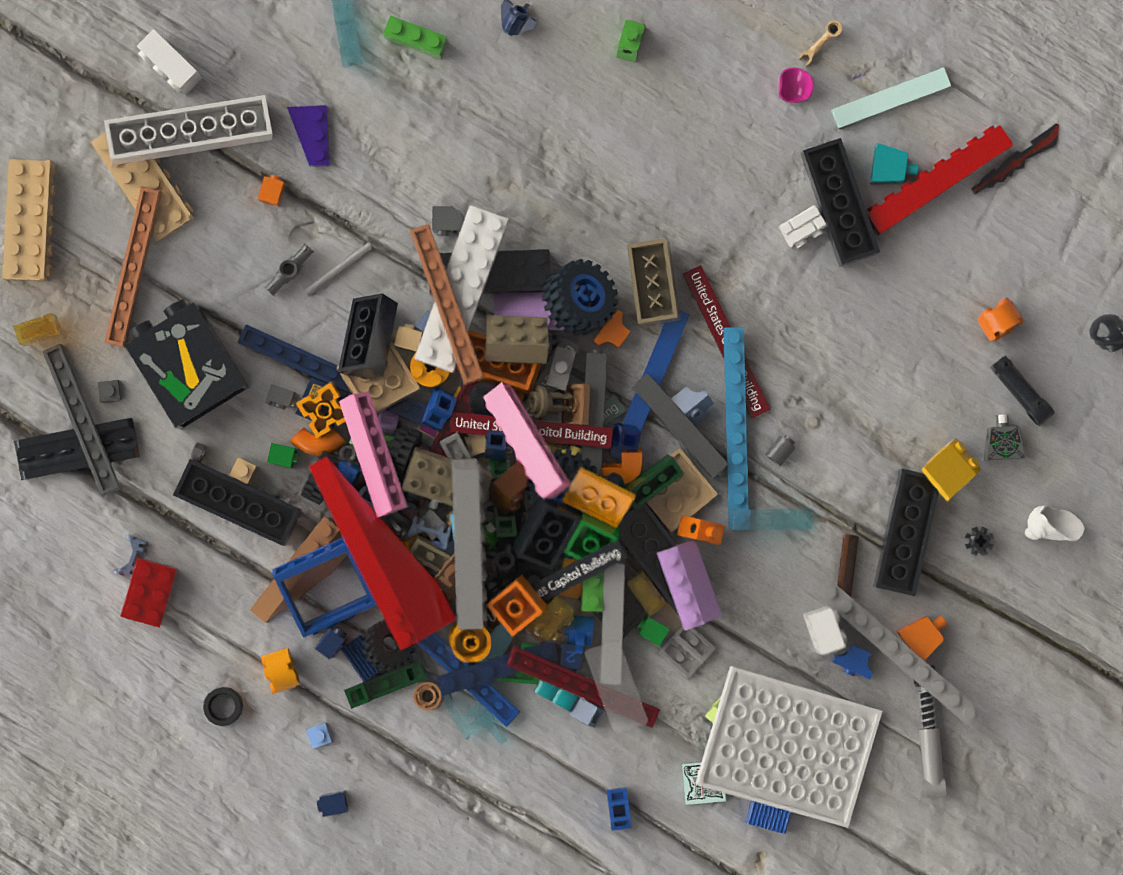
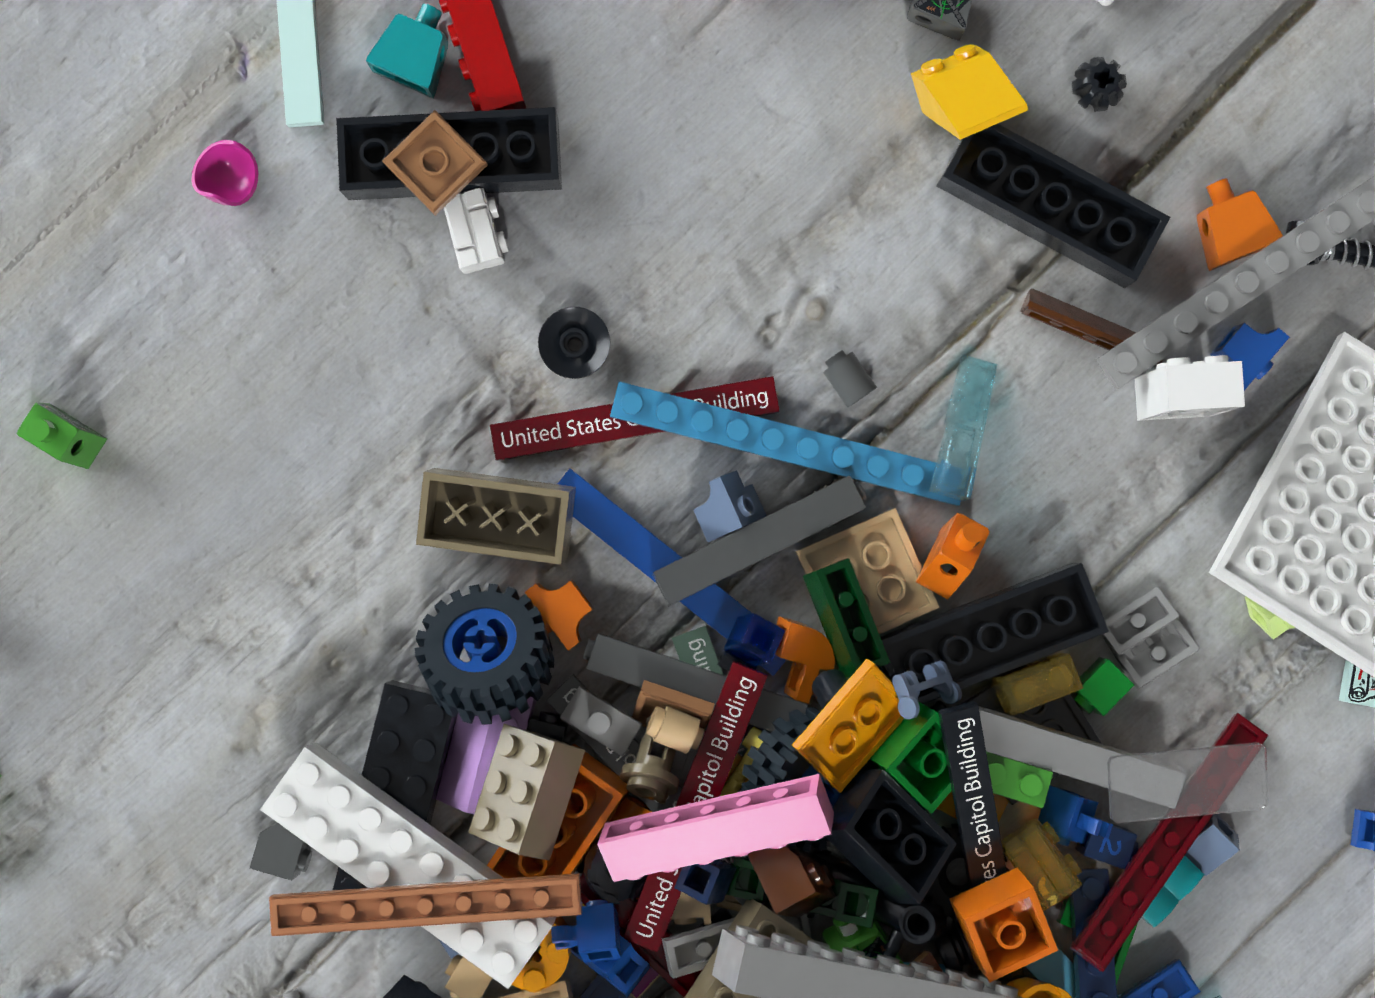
camera: 80 degrees left, 0 degrees up
(451, 395) = (595, 933): none -> blue brick
(569, 407) = (675, 729): none -> tan brick
(626, 521) = (908, 688): none -> sand blue piece
(689, 584) = (1048, 605): lavender slope -> none
(765, 290) = (561, 329): none -> black dish
(823, 40) = (138, 79): tan brick -> none
(831, 197) = (435, 162): none -> medium nougat tile

